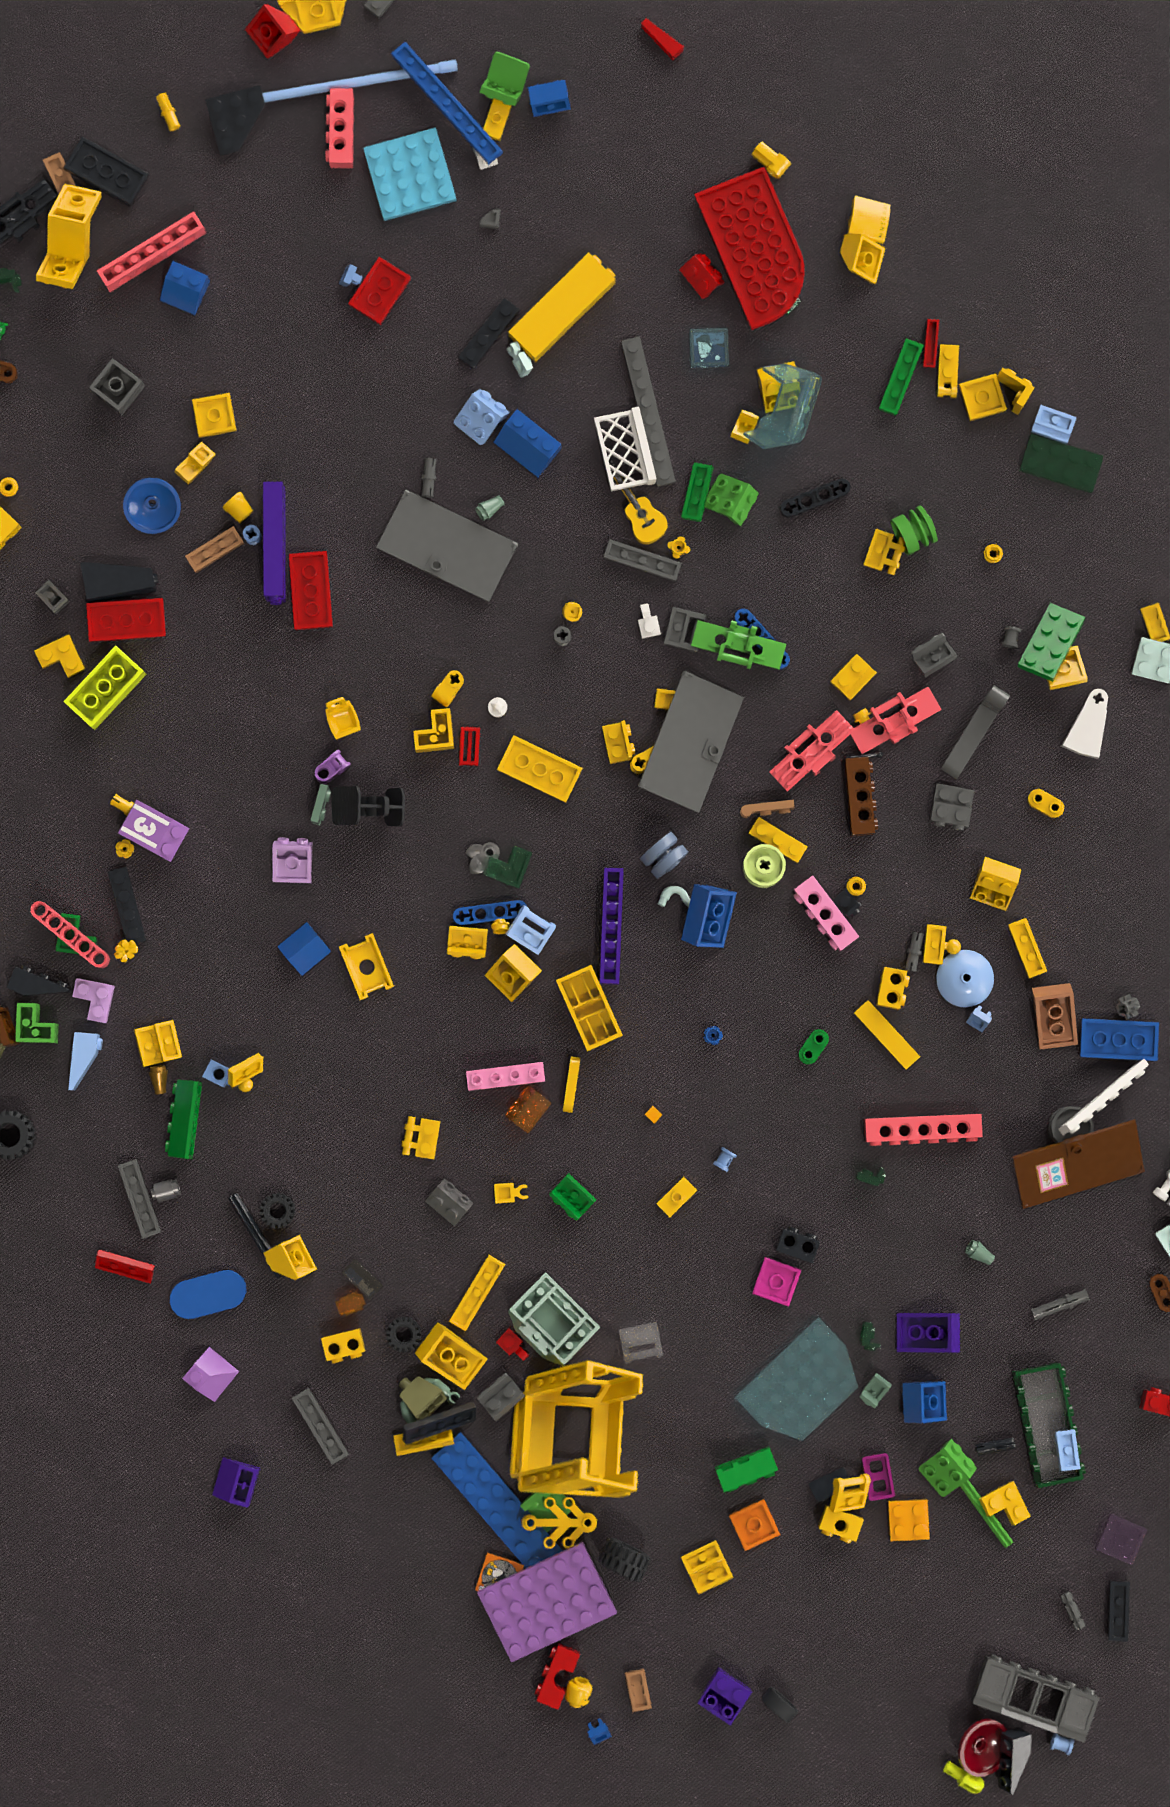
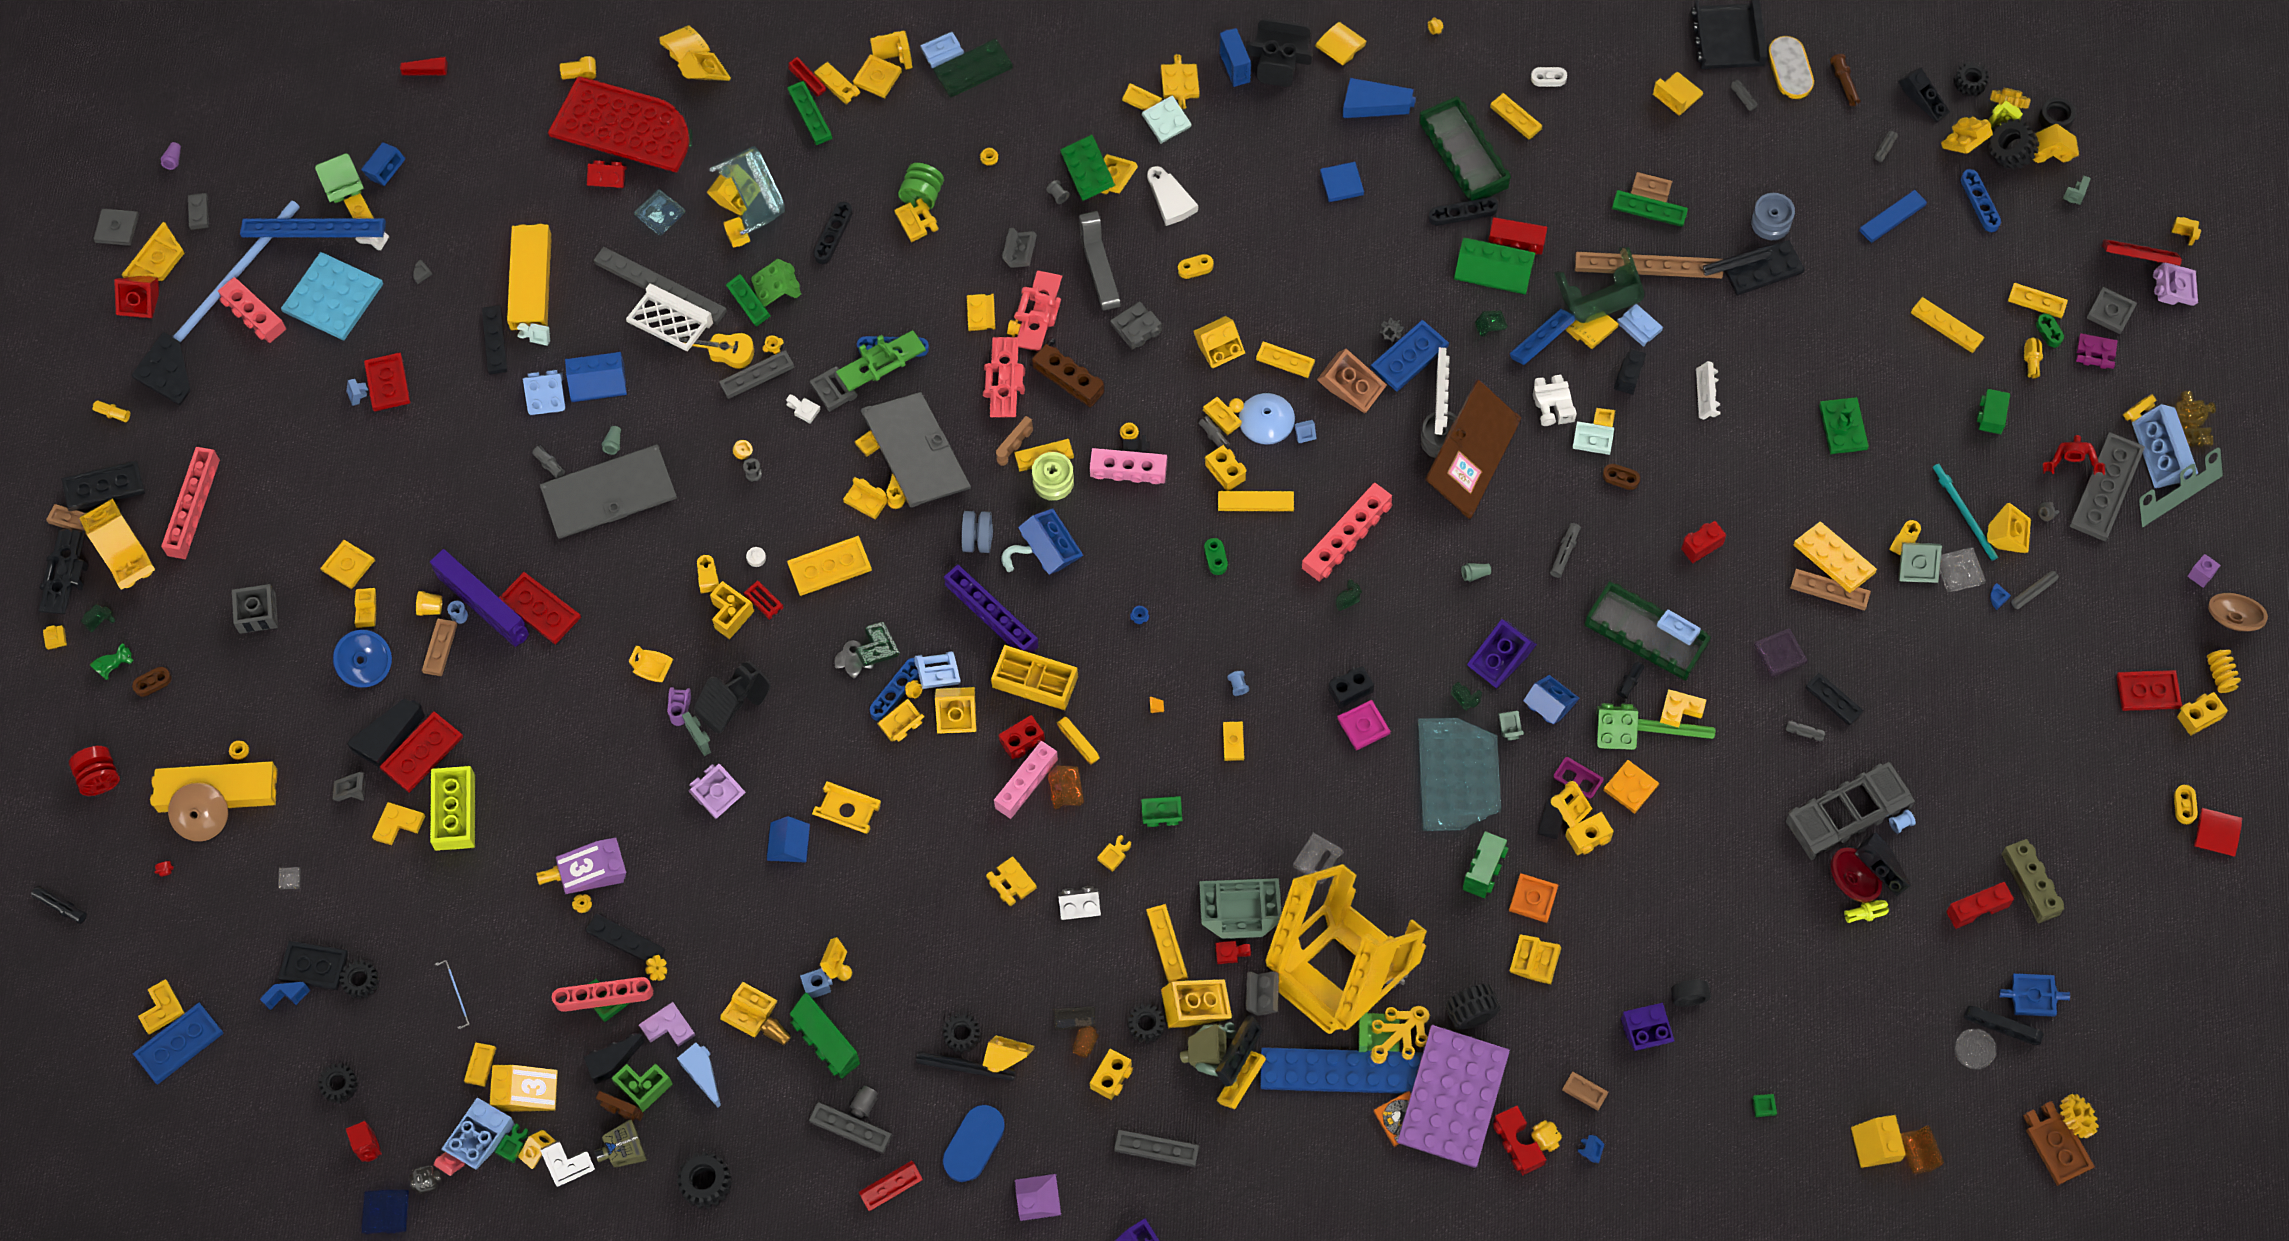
camera: 45 degrees left, 20 degrees down
(184, 288) = (239, 505): blue slope -> none
(536, 1036) = (1018, 734): none -> red brick

